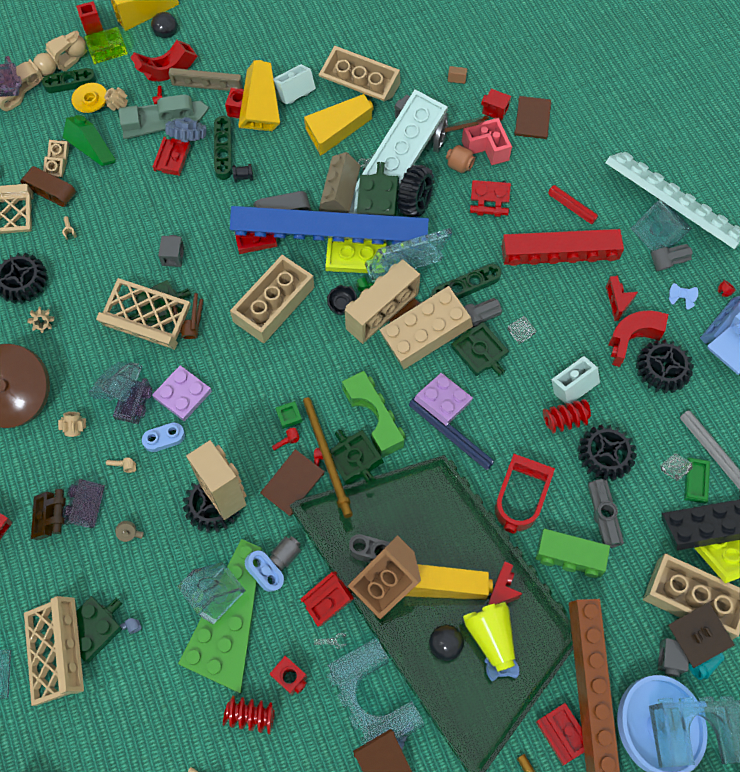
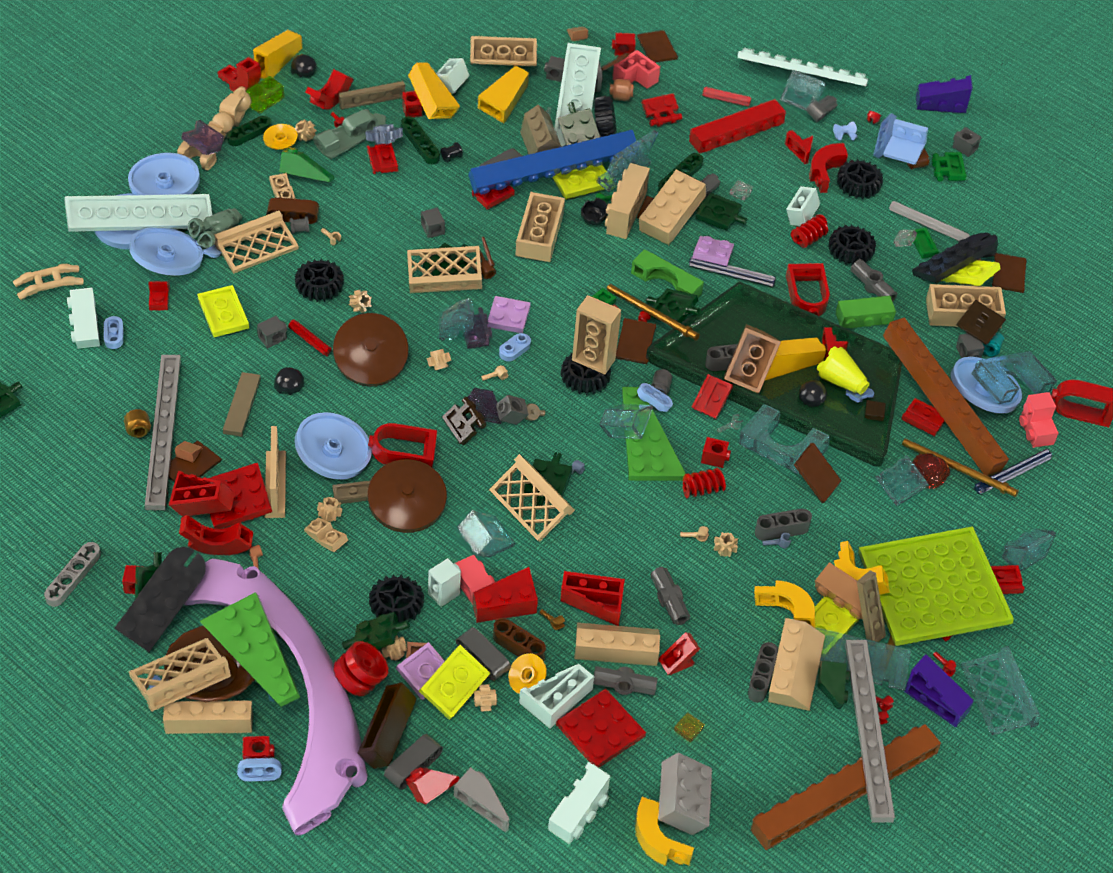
camera: 30 degrees left, 15 degrees down
(43, 205) = (299, 225): none -> dark grey bush
(110, 524) = (512, 409): none -> dark grey brick
(507, 698) = (875, 410): none -> dark brown tile

